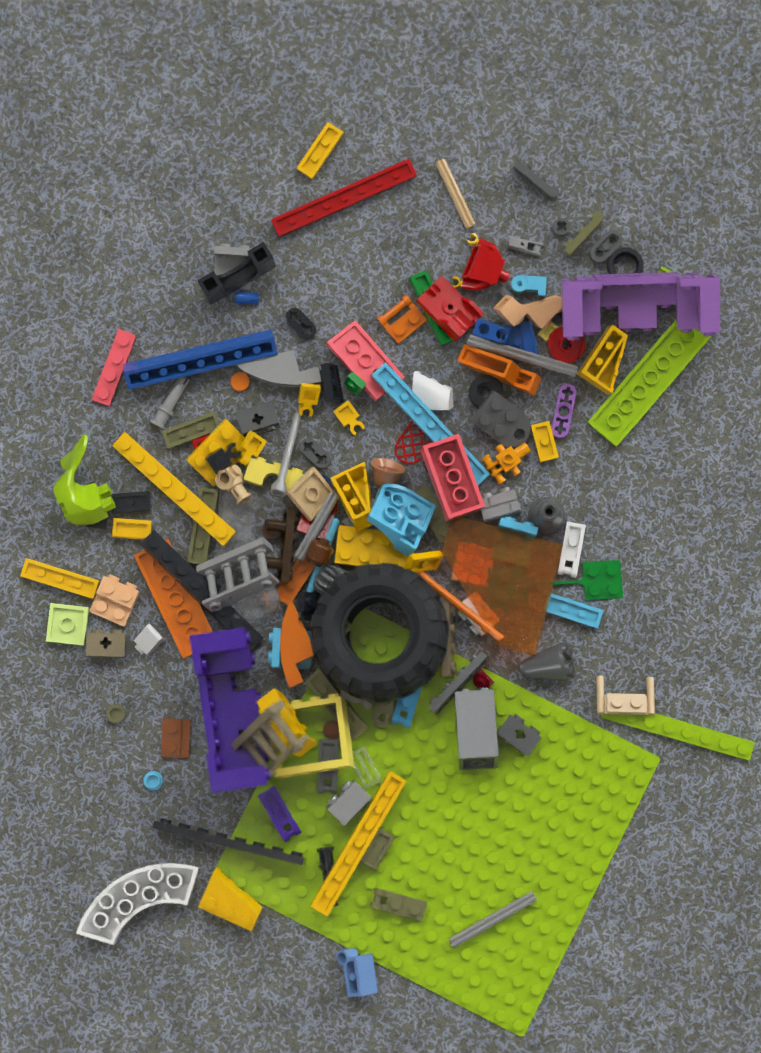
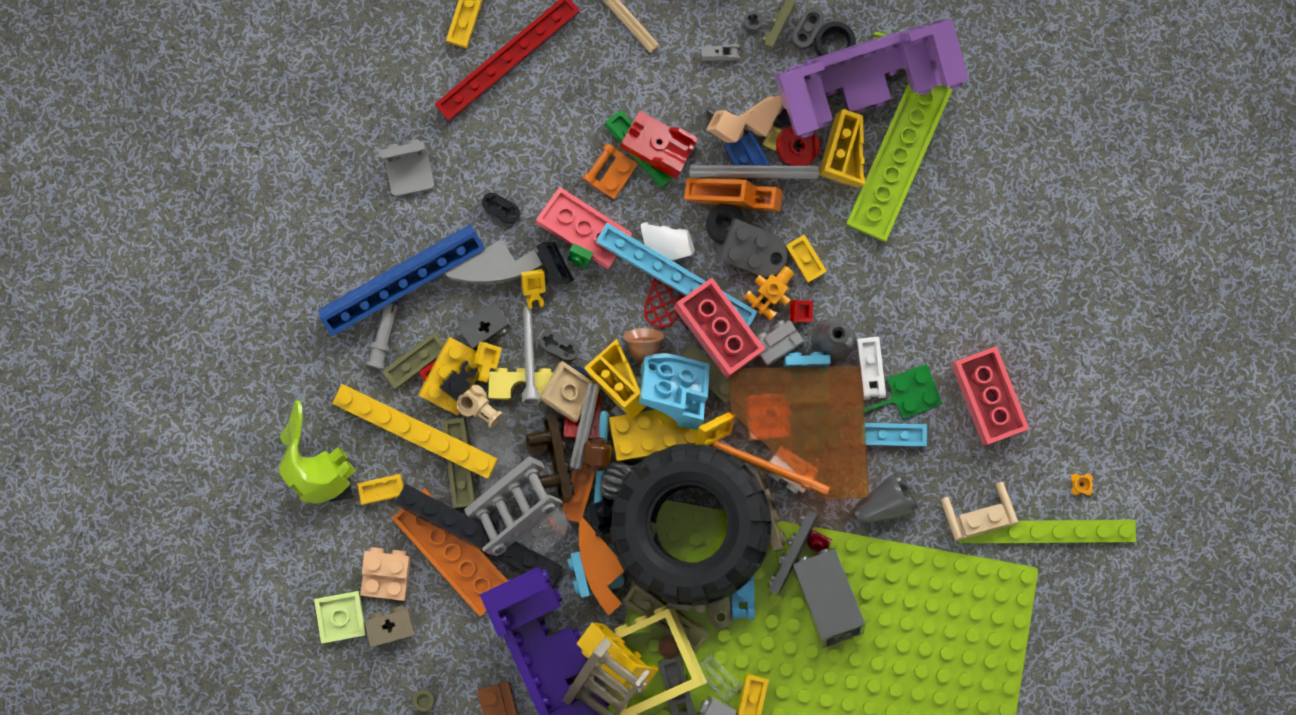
camera: 20 degrees left, 0 degrees up
(60, 578) = (317, 568): yellow plate -> none
(113, 367) = (308, 317): coral plate -> none
(131, 502) = (372, 459): black plate -> none
(148, 640) = (435, 608): white slope -> none
(219, 286) = (433, 157): black arch -> none
(240, 381) = (453, 291): orange tile -> none
(246, 298) = (433, 198): blue pin -> none
(347, 416) = (583, 293): yellow plate -> none
(483, 266) = (681, 88): red torso -> none
(492, 331) = (713, 155): blue leg -> none
(527, 484) = (801, 310): none -> red plate
(531, 734) = (887, 599): dark grey brick -> none
(533, 284) = (738, 92): medium azure leg -> none
(556, 415) = (820, 203): medium lavender beam -> none
(663, 602) = (989, 396): none -> coral brick
(720, 704) = (1086, 480): none -> light orange plate

